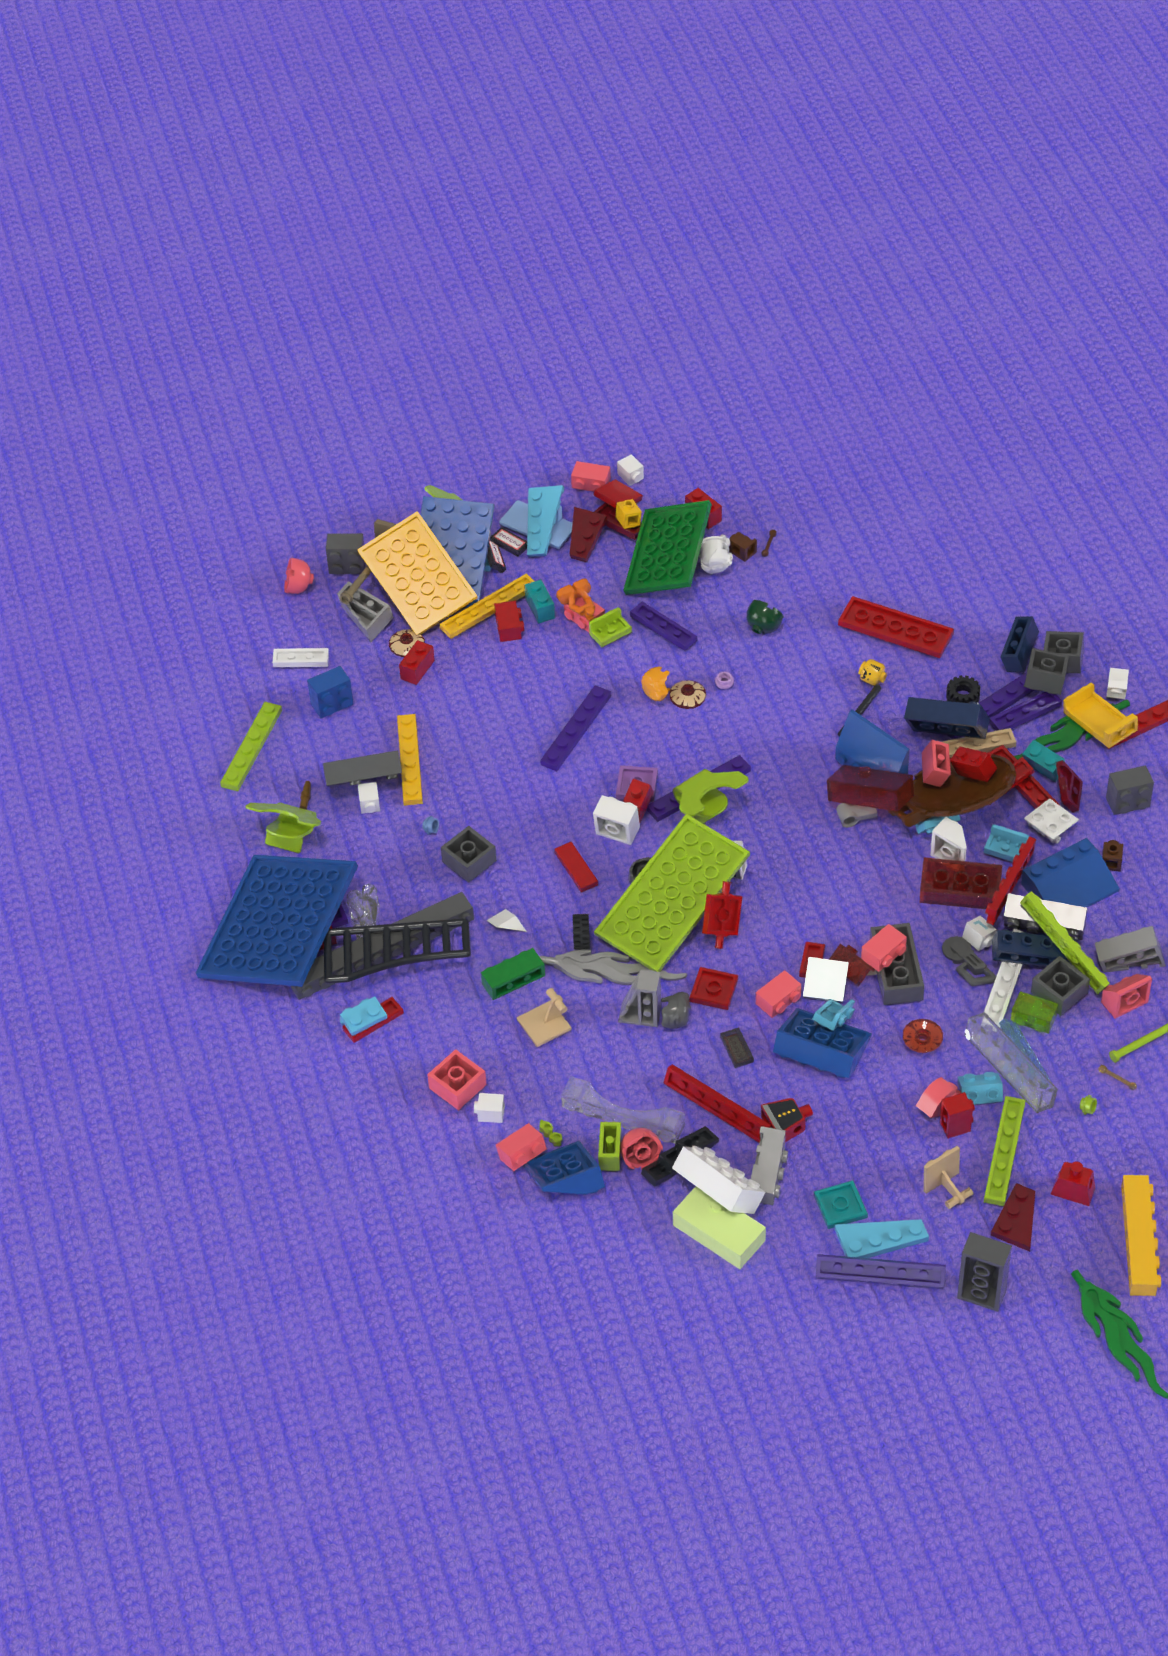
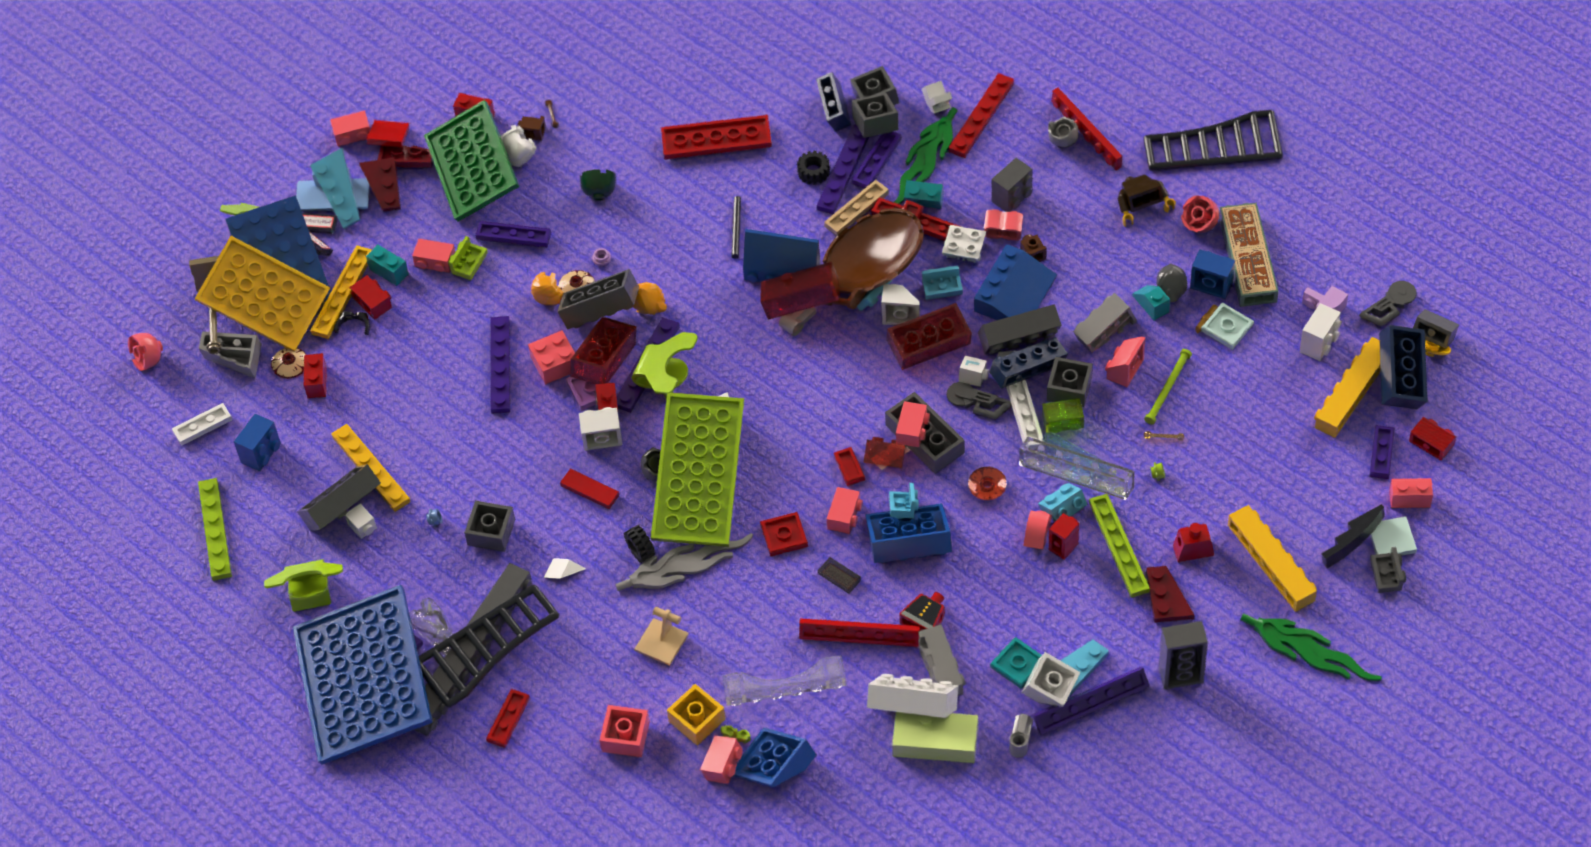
camera: 30 degrees left, 5 degrees up
(305, 795) = (299, 549): pearl gold piece -> none
(343, 553) = (177, 307): dark grey brick -> none
(362, 1016) = (500, 720): medium azure bracket -> none
(478, 627) = (346, 315): none -> black cap
(490, 1107) = (669, 740): white brick -> none
(513, 973) = (604, 612): green brick -> none
(526, 1097) = (696, 714): none -> yellow brick
(579, 589) = (422, 236): orange piece -> none
(609, 1146) = (797, 716): lime brick -> none
(622, 743) = (552, 356): none -> coral brick
(628, 514) = (413, 146): yellow brick -> none
(630, 470) = (382, 105): white brick -> none
(640, 1148) = (824, 705): coral cylinder -> none
(643, 1000) = (737, 576): light grey wedge -> none
(662, 1168) = (856, 699): black slope -> none
(665, 757) = (603, 351): none -> clear red brick
(677, 1011) = (772, 570): dark grey hair -> none
(689, 711) = (598, 299): none -> dark grey brick
(722, 914) = (752, 466): red plate -> none
(736, 732) = (650, 299): none -> light orange hair
(795, 1266) = (1020, 735): none -> light grey piece
(825, 979) = (874, 477): light aqua tile -> none
(851, 1232) = (1050, 681): none -> white slope
(872, 672) = (726, 187): yellow head -> none
(936, 763) = (838, 241): coral brick -> none
(941, 1171) = (1083, 593): tan plate -> none
(947, 717) = (822, 196): dark blue brick -> none
(973, 764) = (872, 226): red brick -> none
(1012, 877) = (972, 317): red plate -> none
(1064, 942) = (1053, 342): lime plate -> none
(1069, 785) = (959, 206): dark red wing -> none
(1099, 716) = (943, 133): yellow panel -> none
(1099, 821) = (1003, 224): none -> coral brick

